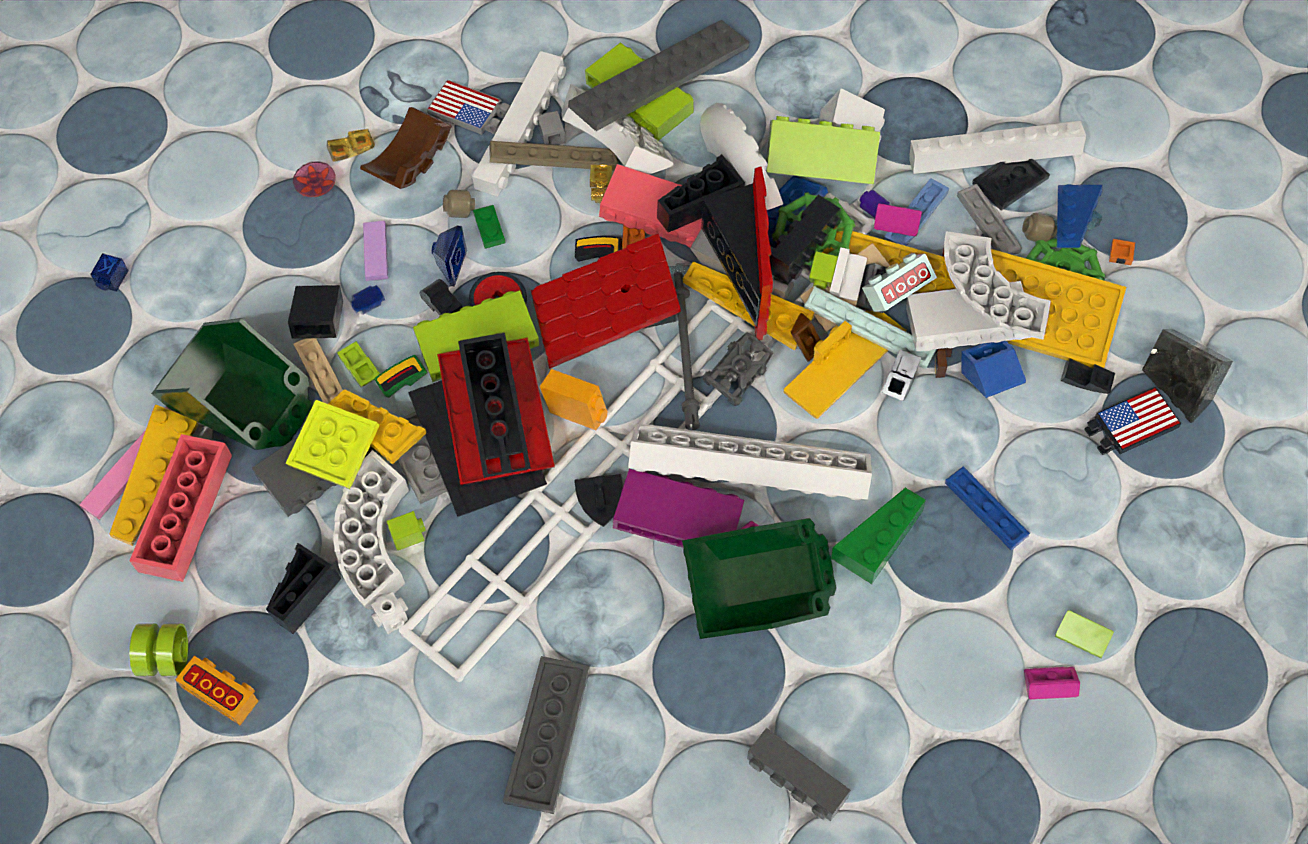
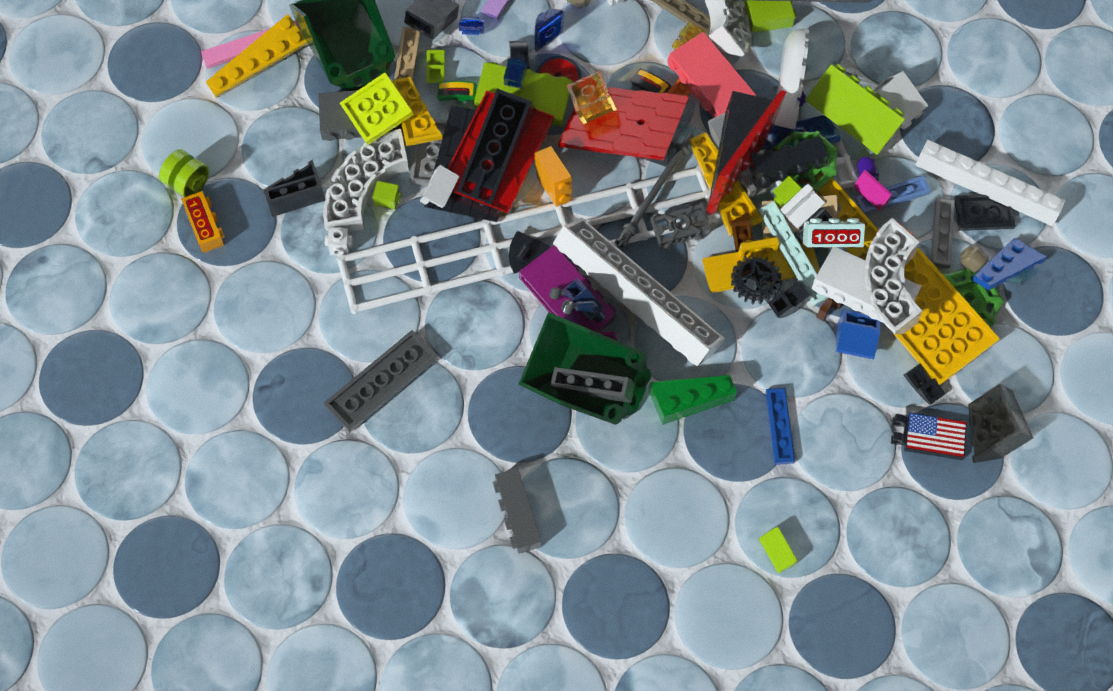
camera: 30 degrees right, 5 degrees up
(181, 508) = (259, 92): coral brick -> none
(456, 317) = (515, 73): none -> clear blue brick
(461, 484) = (439, 187): none -> white panel
(489, 226) = (589, 24): green plate -> none
(554, 294) = (591, 97): none -> clear yellow brick
(685, 202) = (719, 86): black wedge -> none
(703, 503) = (581, 299): none -> dark blue torso
(780, 587) = (592, 384): none -> dark grey brick
(855, 383) = (742, 284): none -> black gear
(1052, 682) = (731, 566): dark pink slope -> none
(1122, 252) = (1022, 313): orange plate -> none

